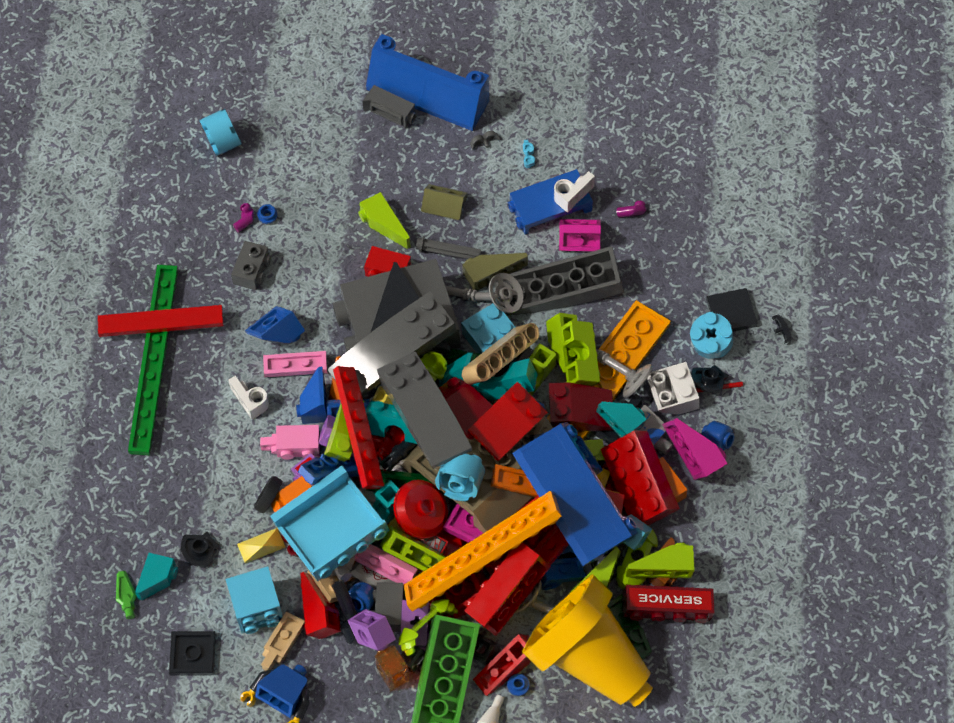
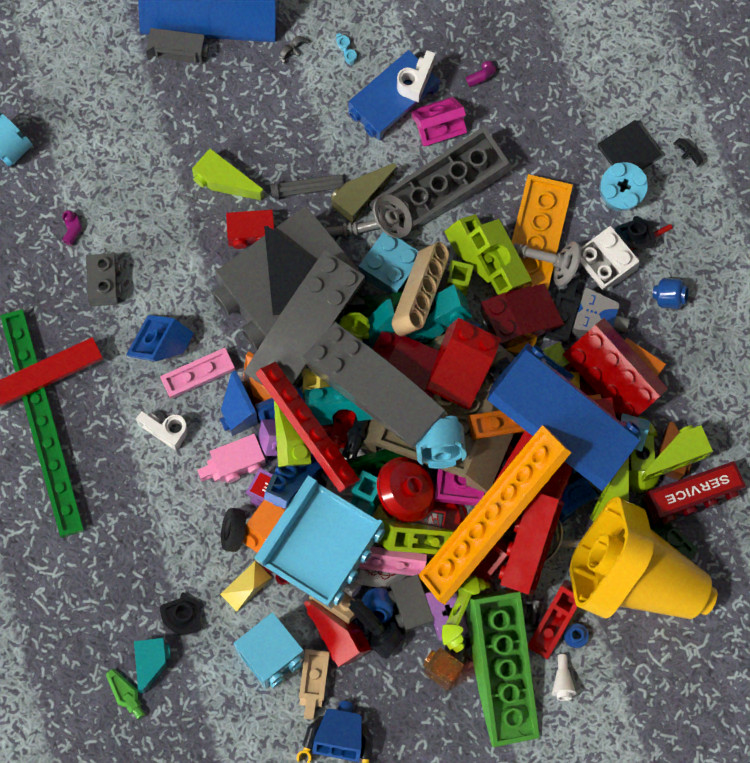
camera: 25 degrees left, 10 degrees up
(192, 653) = (224, 730): black tile -> none
(264, 209) = (91, 208): blue plate -> none
(372, 630) = (410, 639): medium lavender brick -> none
(443, 201) = (279, 134): olive panel -> none
(622, 417) = (572, 312): teal slope -> none
(696, 451) = (662, 322): dark pink slope -> none

